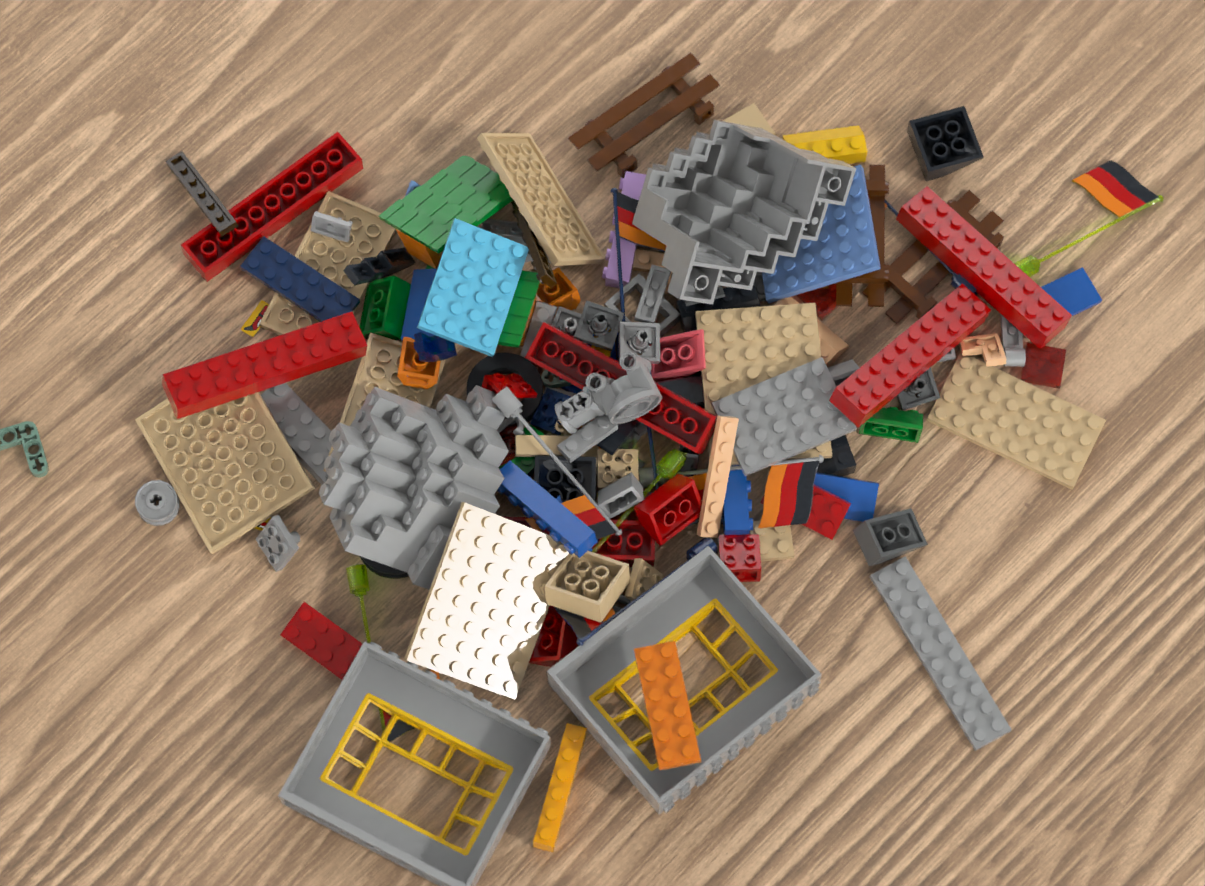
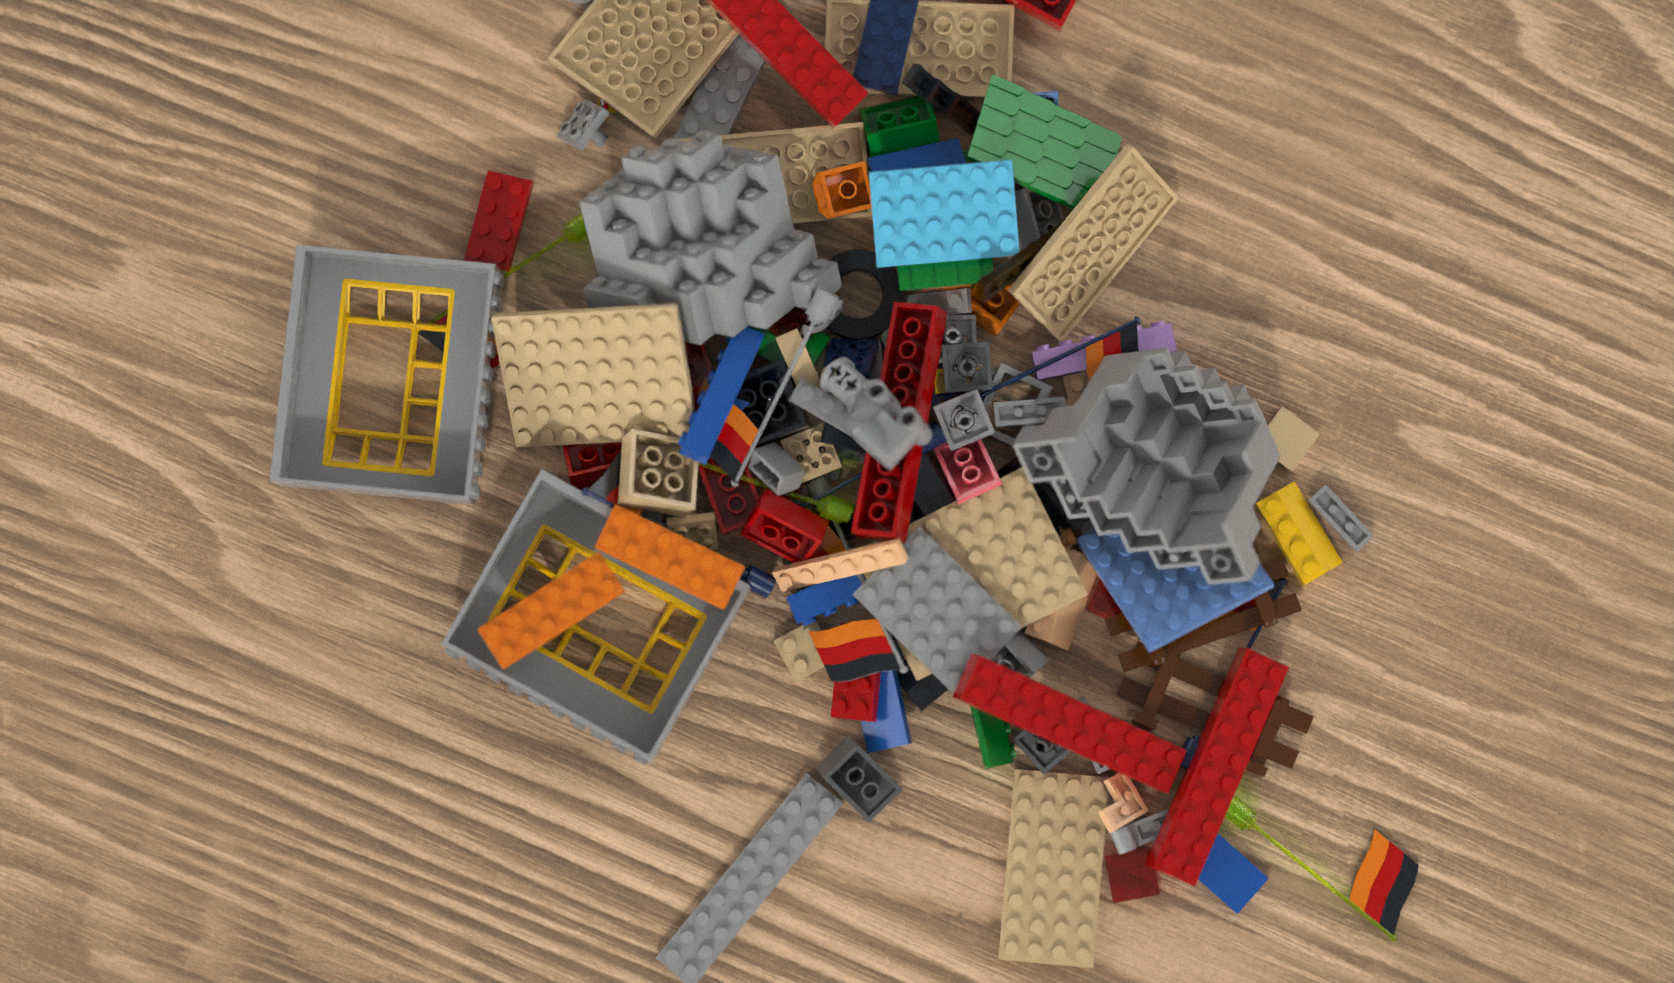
camera: 70 degrees right, 15 degrees up
(331, 226) = (968, 27): light grey plate -> none
(433, 348) = (858, 194): clear blue brick -> none
(513, 381) = (855, 298): red bracket -> none
(560, 787) = (436, 532): light orange brick -> none
(660, 597) = (669, 557): none -> orange plate
(687, 98) = (1196, 302): reddish brown fence -> none
(741, 556) = (768, 623): red bracket -> none
(762, 301) = (1066, 537): none -> clear orange plate
(824, 113) = (1340, 518): none -> light grey plate
(944, 142) = (1355, 668): black slope -> none

